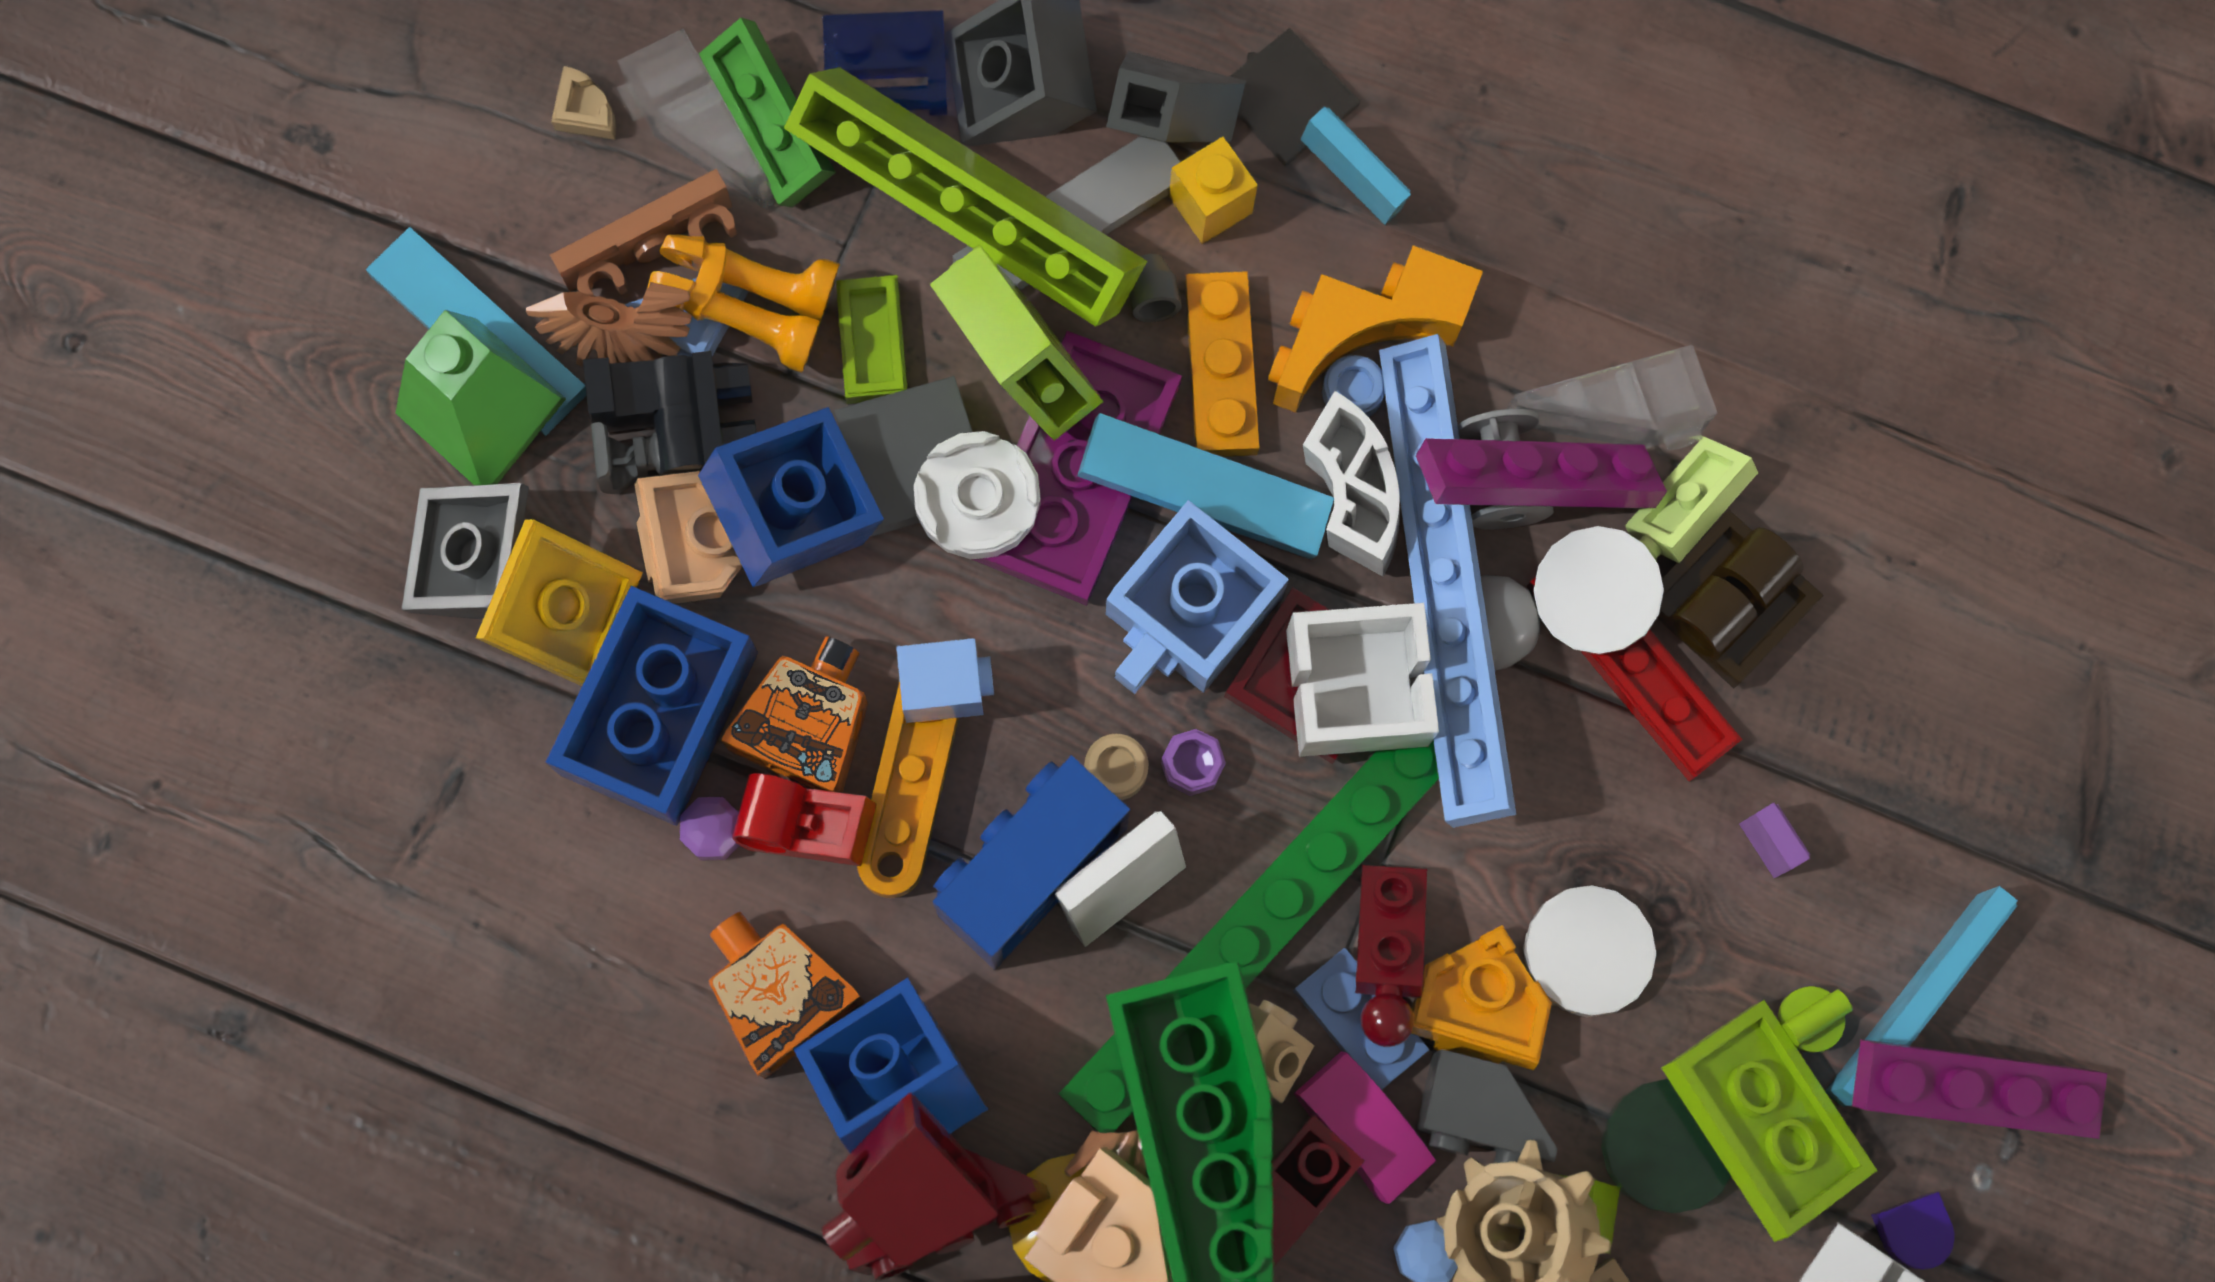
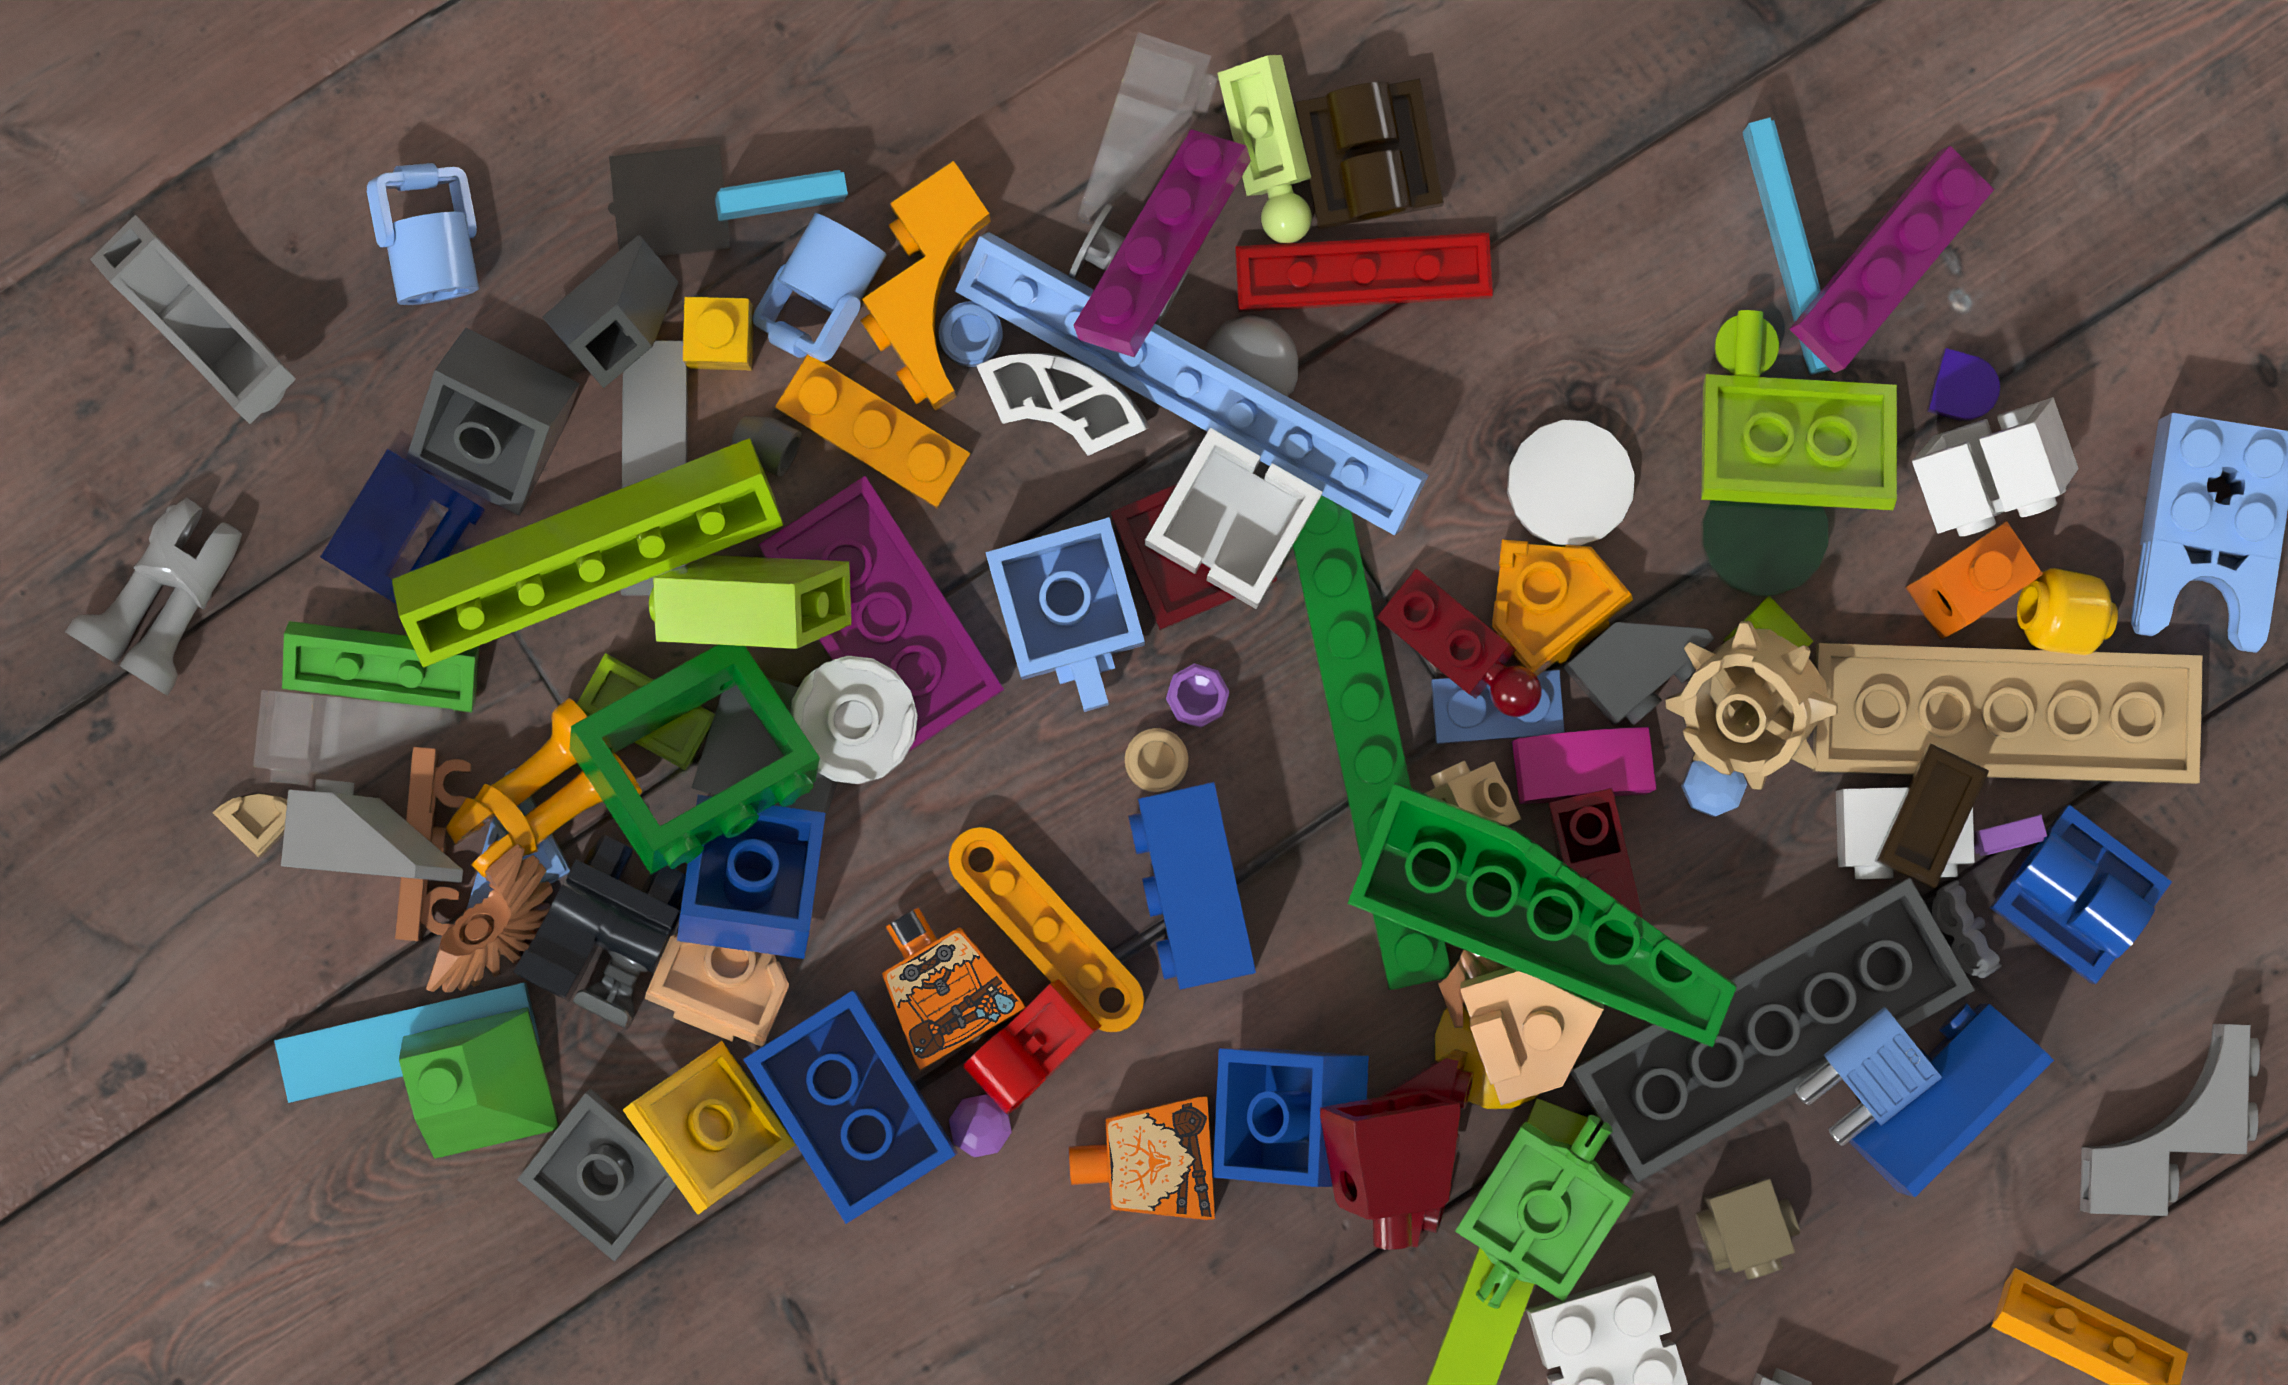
camera: 50 degrees left, 10 degrees up
(613, 172) = (358, 836): none -> light grey slope
(883, 329) = (664, 700): none -> green window
(943, 680) = (996, 855): light blue brick -> none
(1121, 878) = (1257, 823): white tile -> none
(1227, 491) = (975, 523): medium azure tile -> none
(1321, 236) = (828, 269): none -> light blue piece
(1598, 590) = (1289, 264): white tile -> none
(1775, 840) = (1588, 269): medium lavender tile -> none

